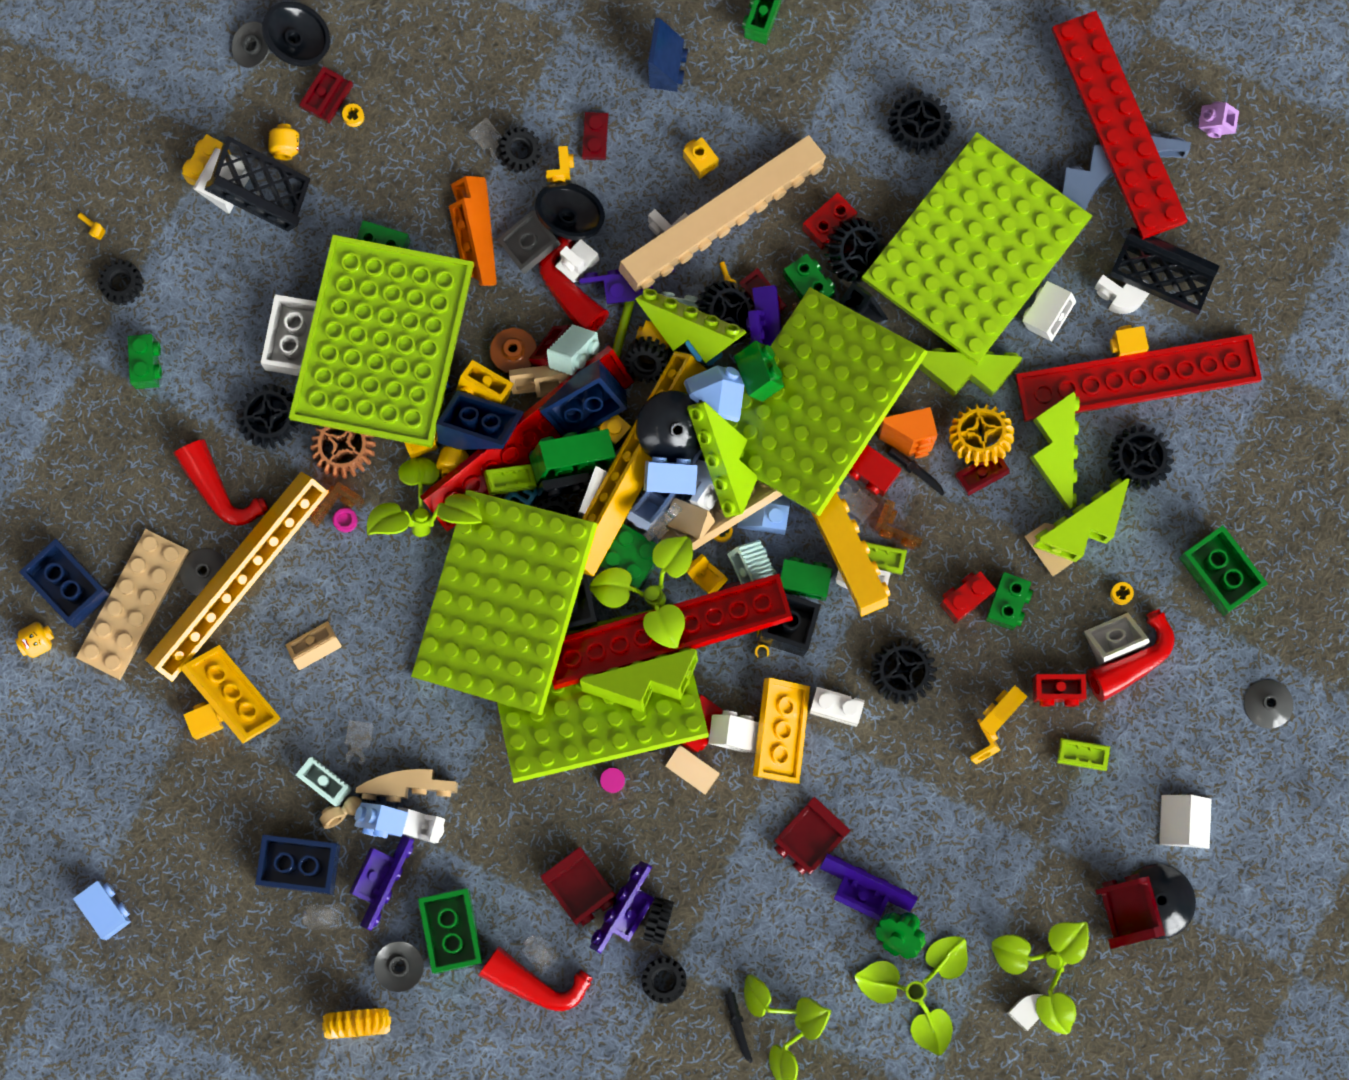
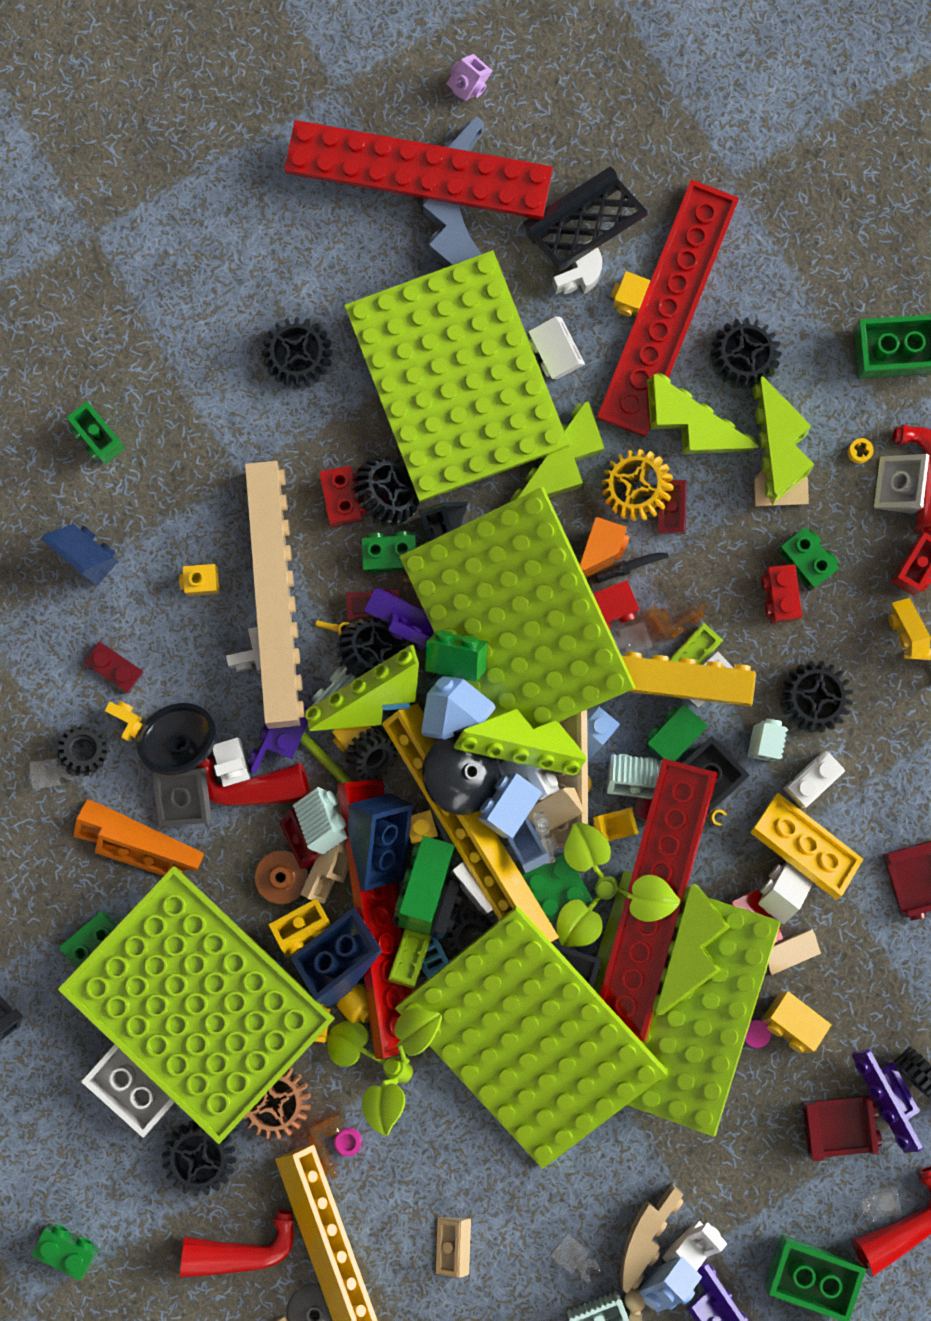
camera: 65 degrees left, 5 degrees up
(638, 802) = (795, 1023): none -> yellow brick
(844, 650) = (767, 740): none -> light aqua brick

